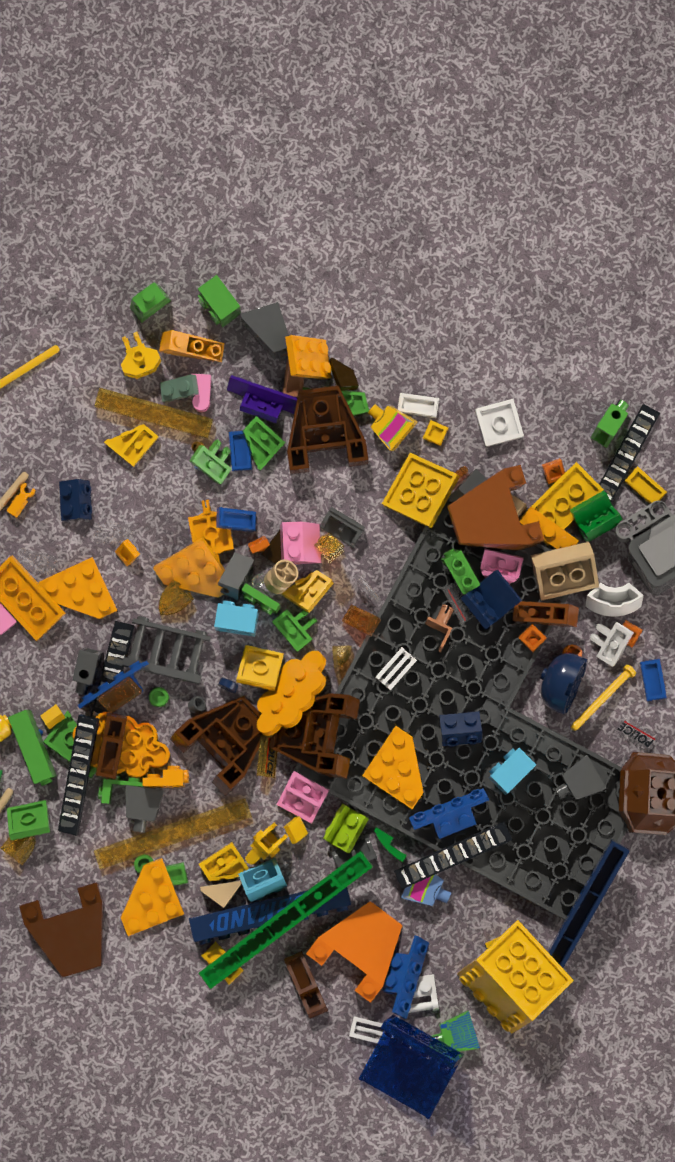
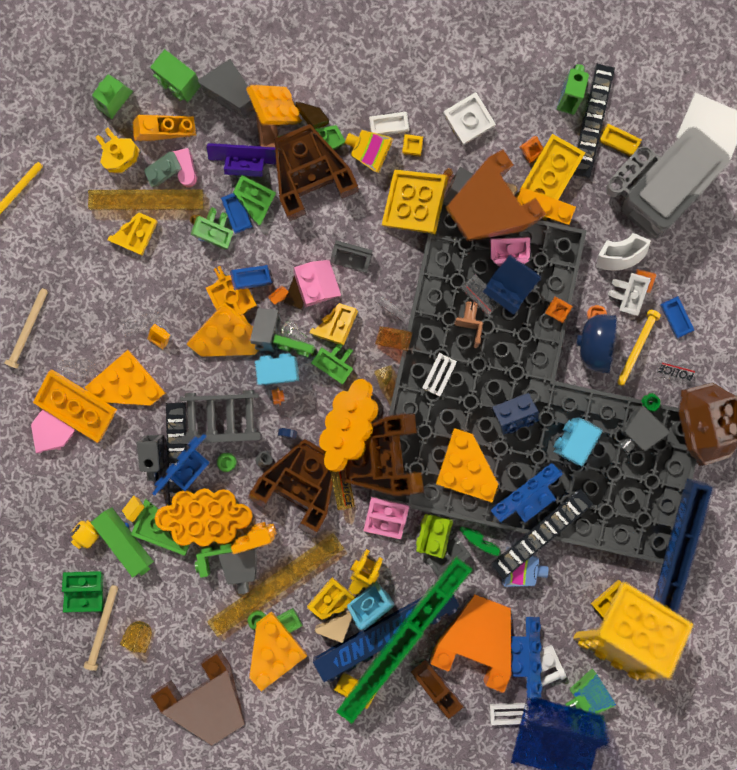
camera: 15 degrees left, 5 degrees up
(20, 501) = (46, 317): light orange bar -> none
(28, 820) = (137, 612): bright green plate -> none
(75, 500) = (97, 301): dark blue bracket -> none
(78, 774) = (171, 557): tile -> none
(111, 745) = (193, 522): reddish brown slope -> none
(119, 695) = (187, 473): clear orange plate -> none
(174, 599) = (214, 367): clear yellow brick -> none
(228, 645) = (278, 396): none -> orange plate
(259, 667) = (312, 409): yellow tile -> none
(281, 576) = (307, 318): tan wheel -> none
(295, 830) = (388, 550): yellow tile -> none
(329, 547) = (345, 278): clear yellow bracket -> none
(460, 570) = (474, 265): bright green bracket -> none
(546, 613) = (566, 283): dark orange slope -> none
(565, 571) = (572, 238): tan slope -> none
(595, 516) = (584, 179): green bracket -> none
(603, 755) = (655, 402): none -> green plate

